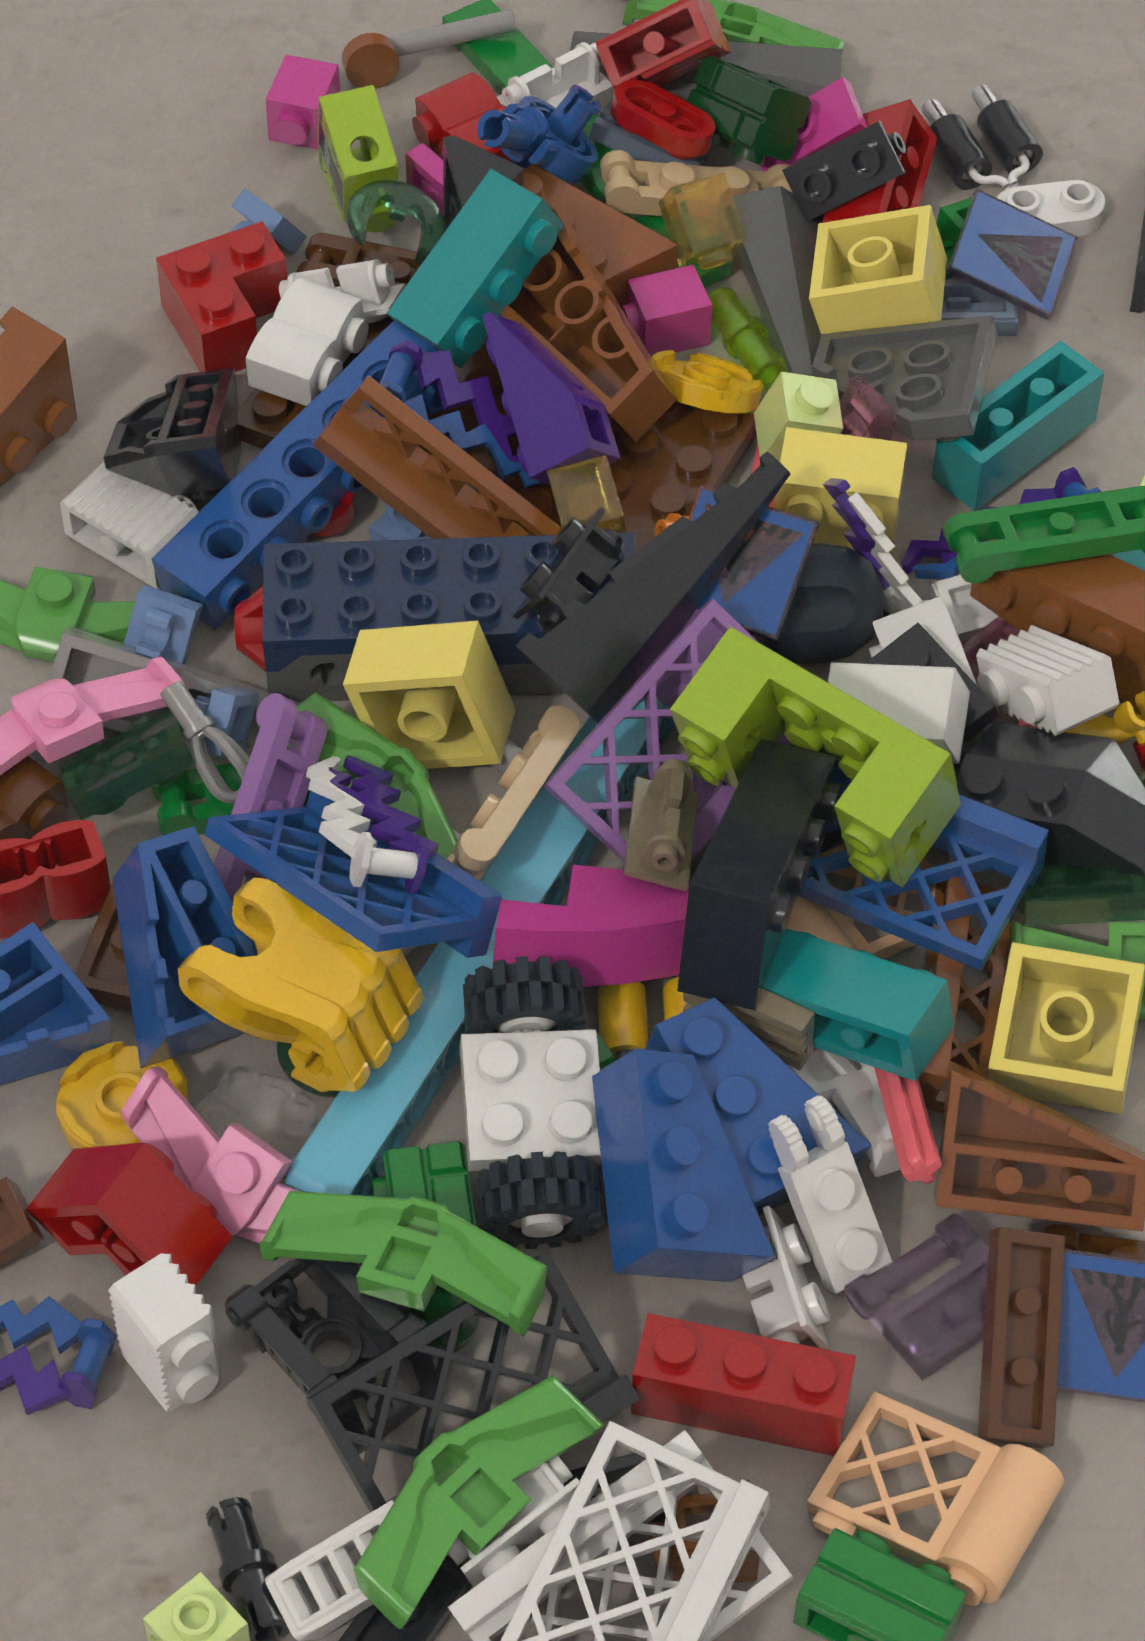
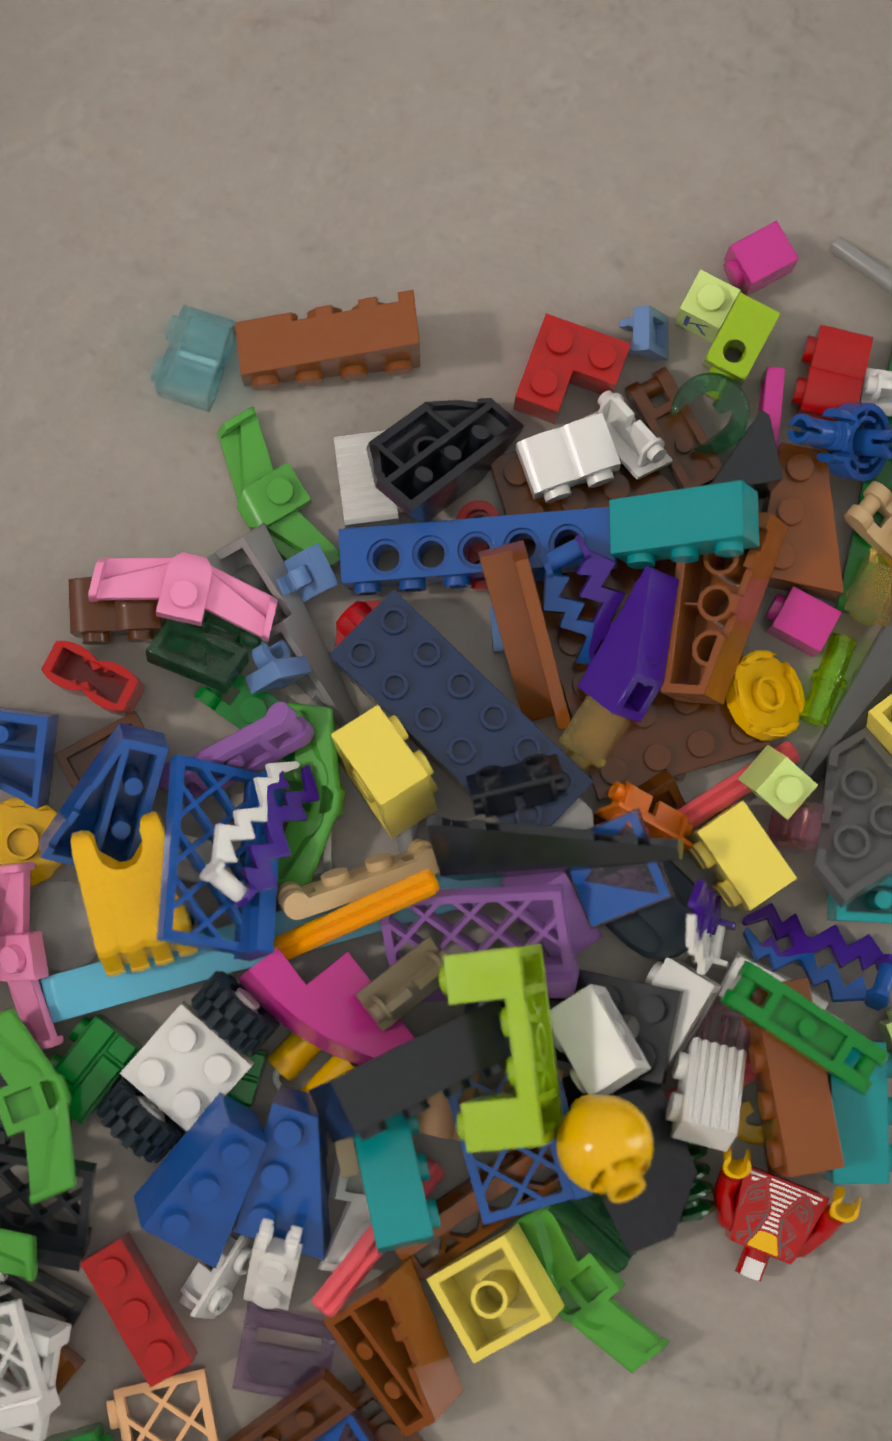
camera: 45 degrees right, 30 degrees up
(196, 728) = (245, 676): light grey piece -> none
(297, 164) = (706, 306): none -> yellowish green brick
(370, 60) = (832, 262): dark orange tile -> none
(549, 797) = (357, 914): none -> light orange axle
(1009, 742) = (605, 1146): none -> yellow brick

